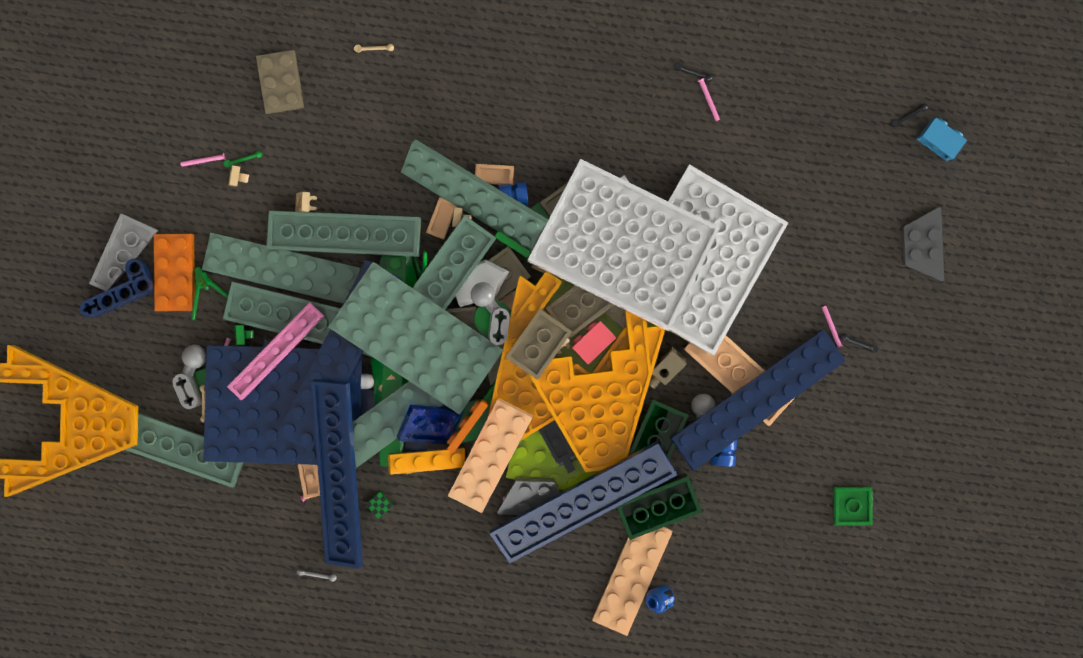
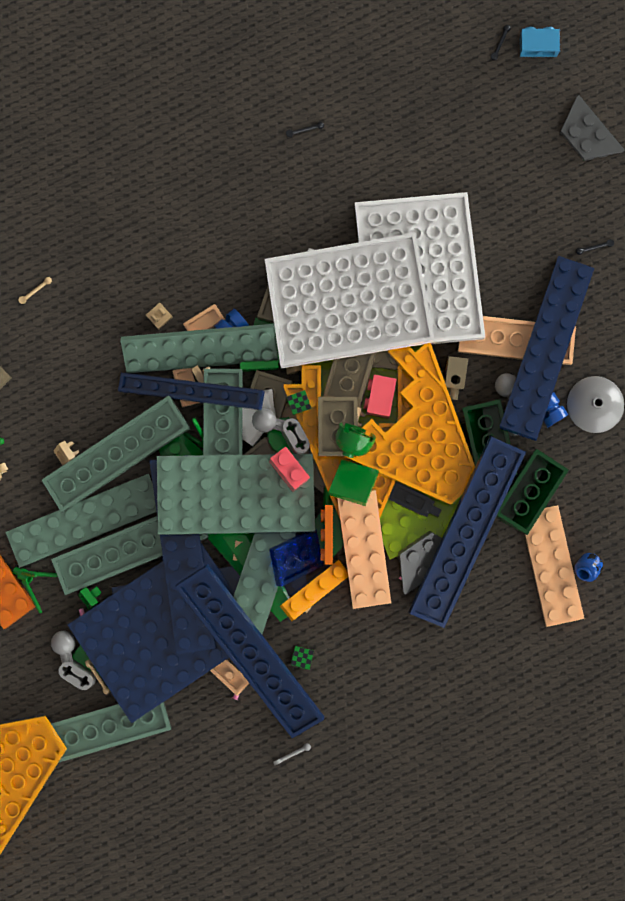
camera: 30 degrees left, 5 degrees down
(275, 351) = (128, 588): bright pink tile -> none
(367, 381) = (220, 561): white hinge -> none
(441, 227) = (191, 391): none -> dark blue tile
(460, 143) = (159, 316): none -> tan tile
(473, 351) = (289, 469): none -> coral brick
(518, 398) = (353, 482): none -> green tile
(521, 300) = (298, 402): none -> tile
(542, 367) = (353, 440): none -> green cylinder
(709, 100) = (332, 141): bright pink piece -> none
(754, 462) = (582, 405): none -> light grey dish
(832, 328) = (564, 250): bright pink piece -> none

